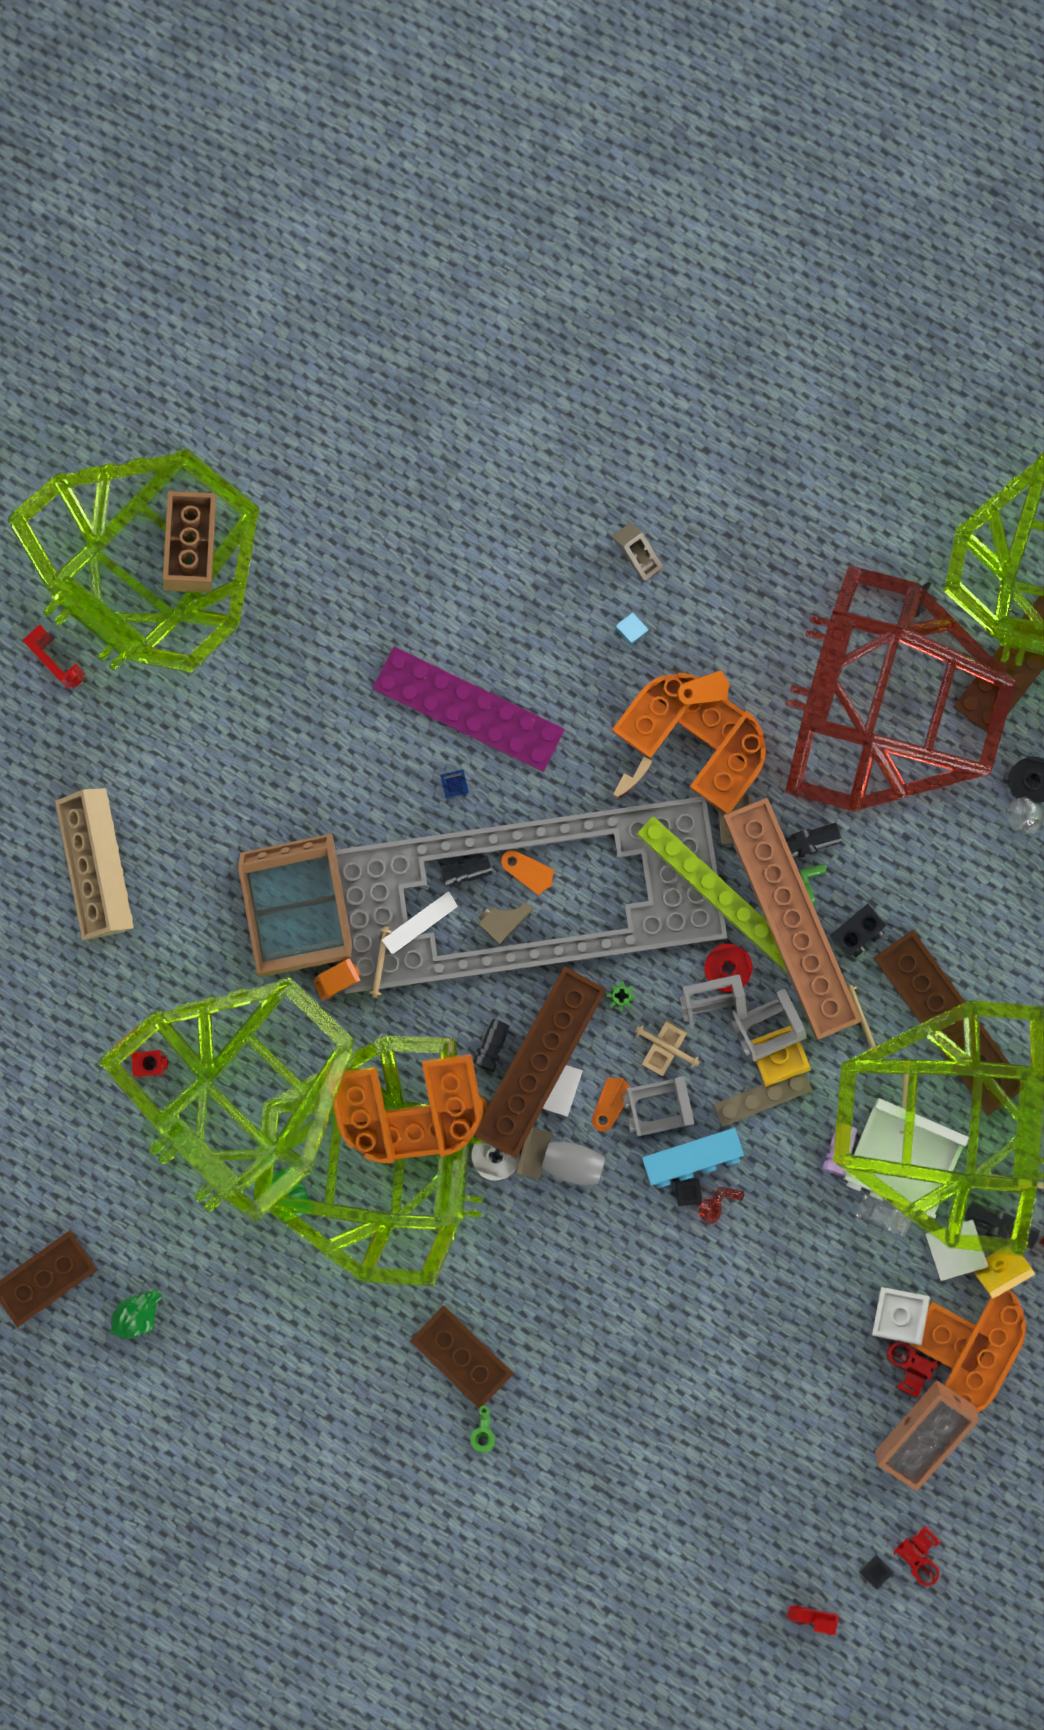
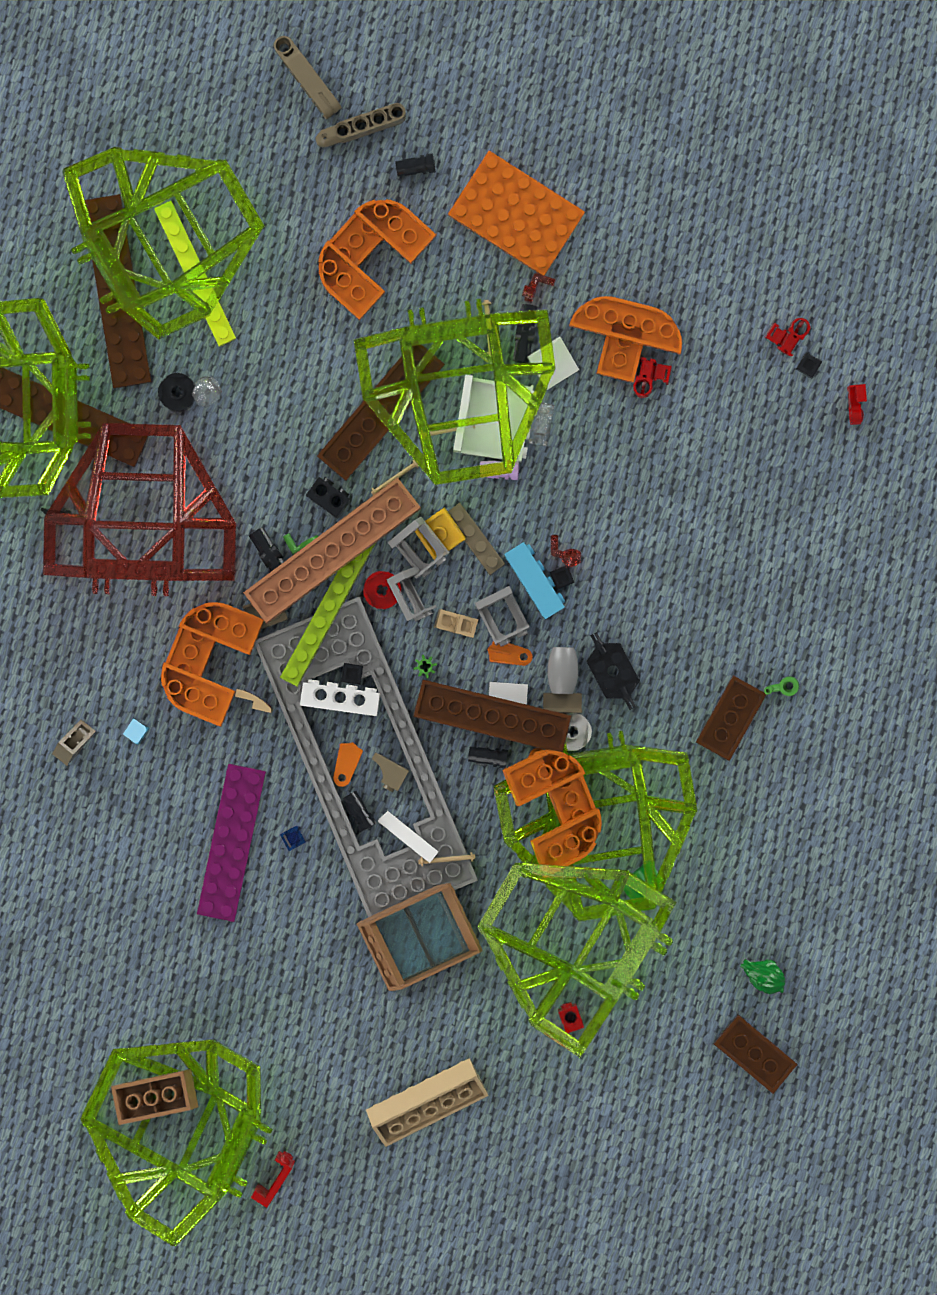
camera: 110 degrees left, 5 degrees up
(336, 979) = (469, 889): orange slope -> none
(537, 1231) = (624, 682): none -> black plate
(588, 914) = (309, 698): none -> white brick
(635, 905) = (352, 673): none -> black tile
(640, 1031) = (454, 622): tan axle -> none
(705, 689) = (170, 662): orange piece -> none
(901, 1316) = (613, 393): white tile -> none
(926, 1435) = (699, 351): brick -> none
(1003, 1273) = (563, 323): yellow plate -> none

